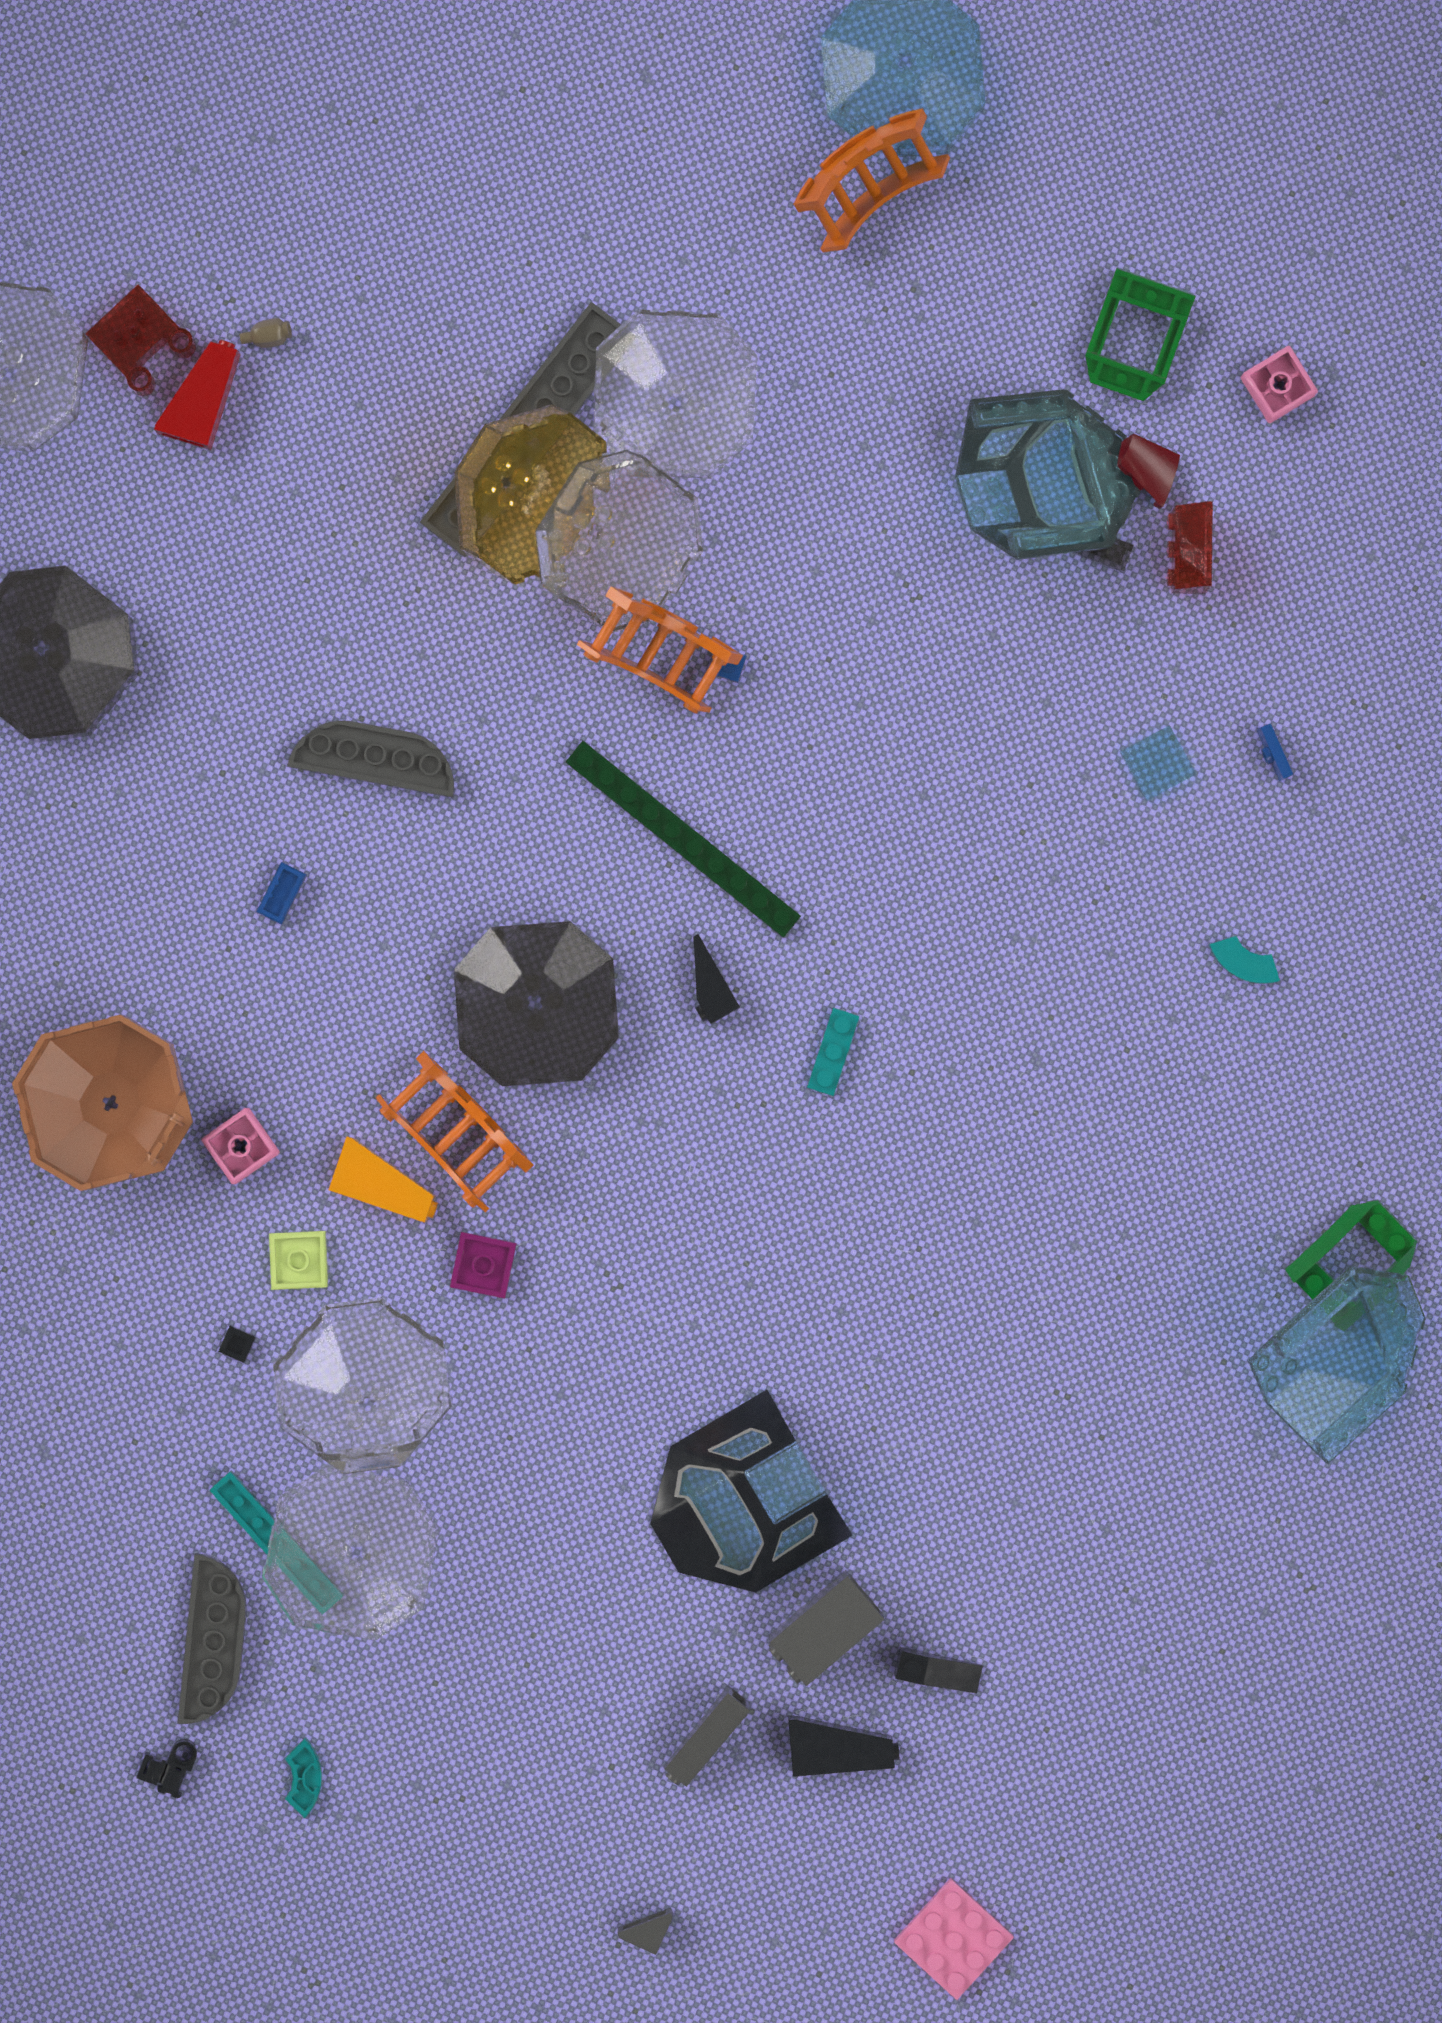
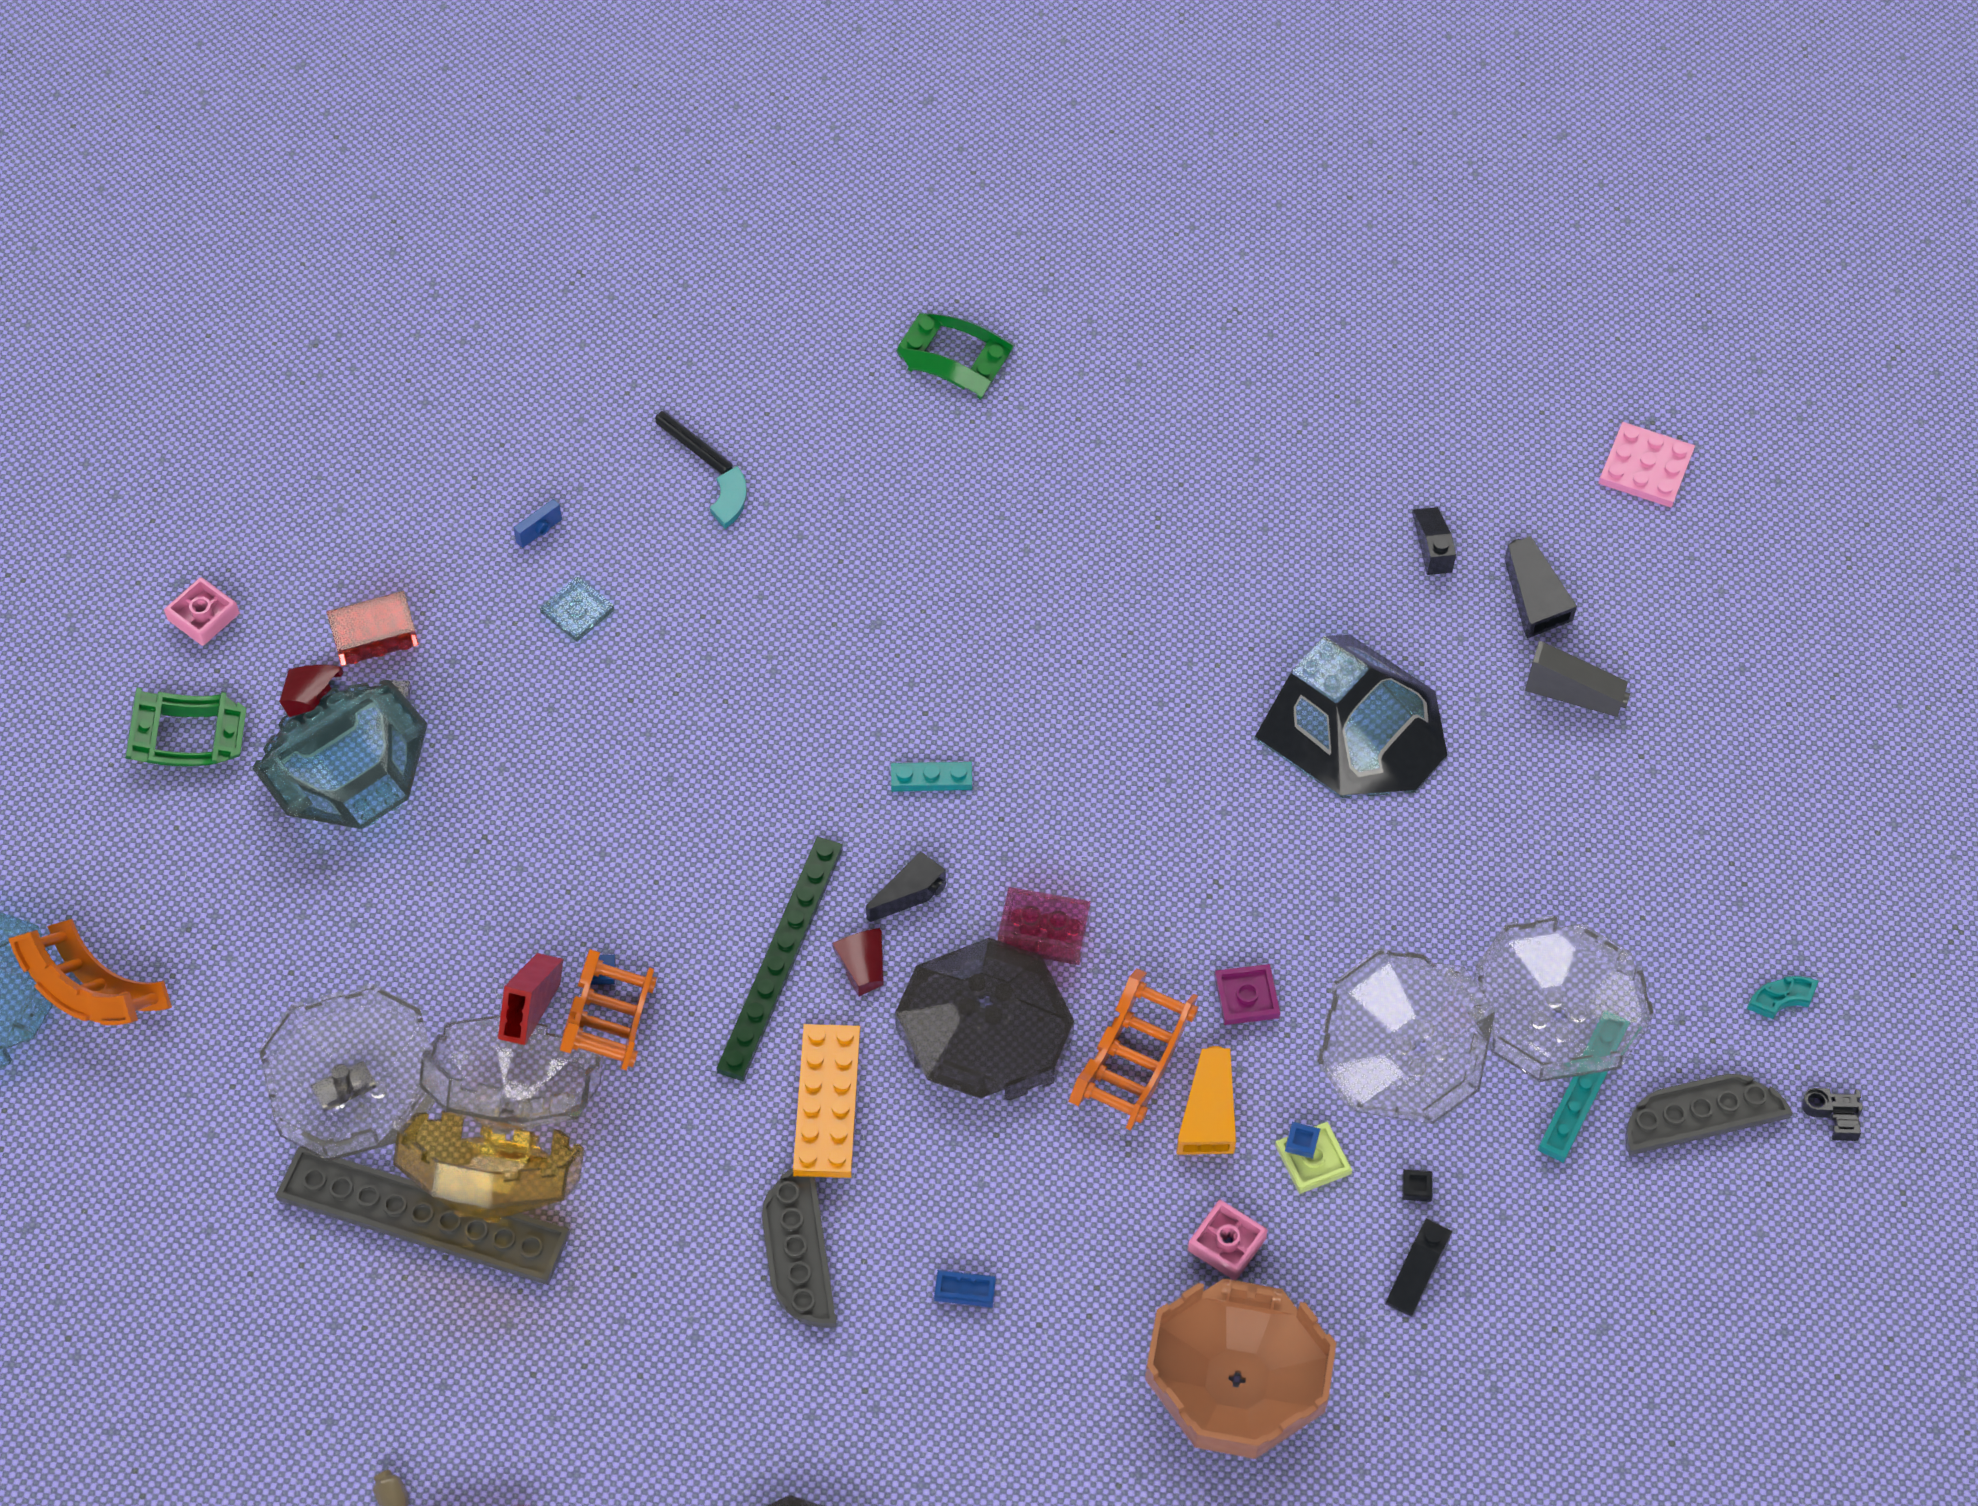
camera: 110 degrees left, 30 degrees down
(153, 1309) = (1419, 1267): none -> black slope
(310, 1253) = (1302, 1140): none -> blue plate
(511, 831) = (826, 1101): none -> light orange plate
(618, 1097) = (1045, 924): none -> clear pink brick
(648, 1931) = (1763, 678): dark grey slope -> none
(650, 914) = (862, 959): none -> slope
(677, 389) = (343, 1085): none -> clear smoke tile
(706, 584) = (528, 997): none -> slope
(824, 1628) = (1440, 620): dark grey brick -> none
(1327, 945) = (693, 442): none -> black axle
(1342, 1358) = (1046, 331): clear light blue windscreen -> none

